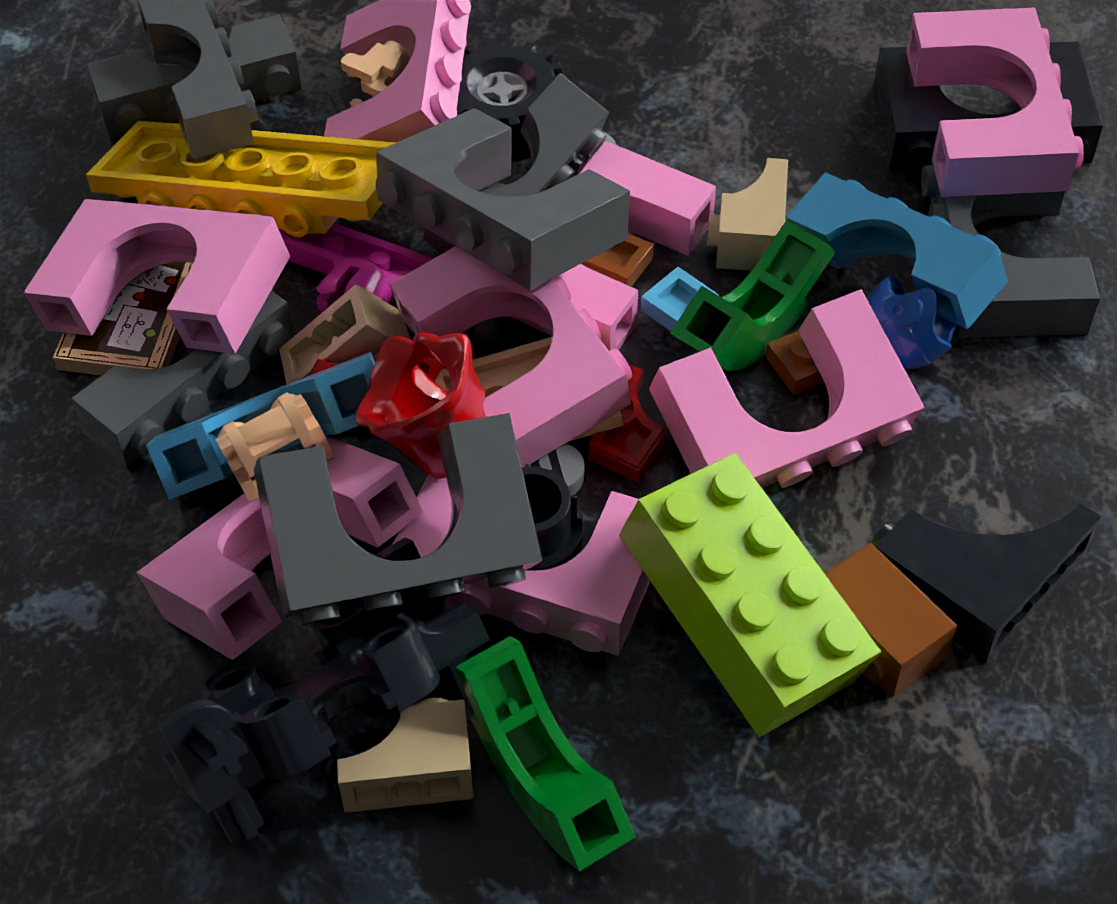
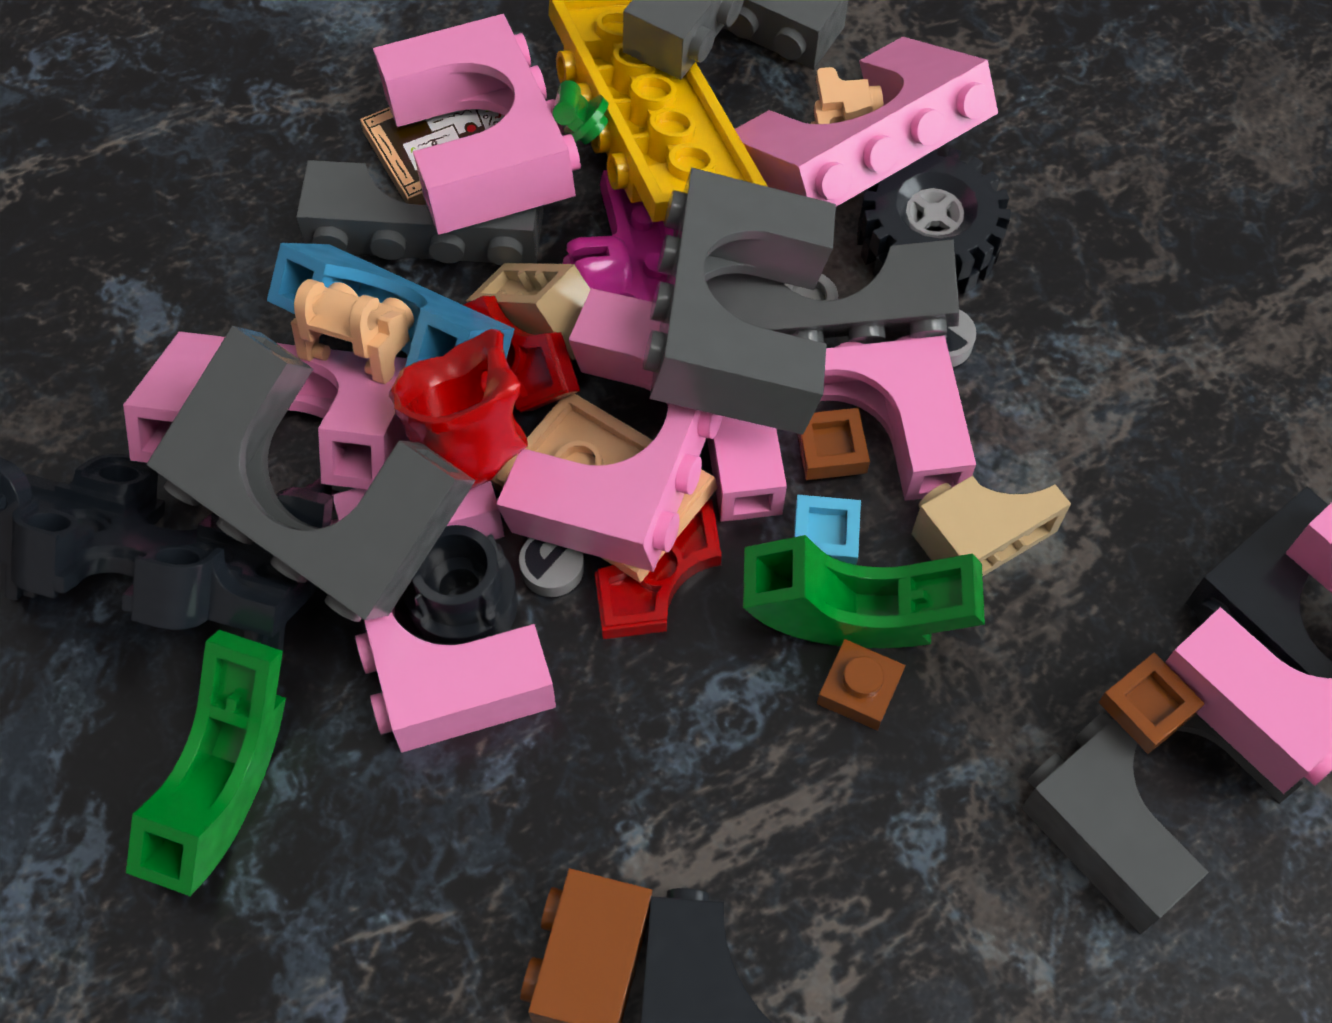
camera: 50 degrees right, 10 degrees up
(238, 198) = (582, 118): none -> green plate
(415, 764) = (154, 662): tan arch -> none
(747, 593) = (500, 818): lime brick -> none
(858, 223) = (1042, 741): dark azure arch -> none
(865, 389) = (673, 702): bright pink arch -> none
(911, 323) = (965, 751): blue cap -> none
(965, 202) = (1151, 703): none -> dark orange plate

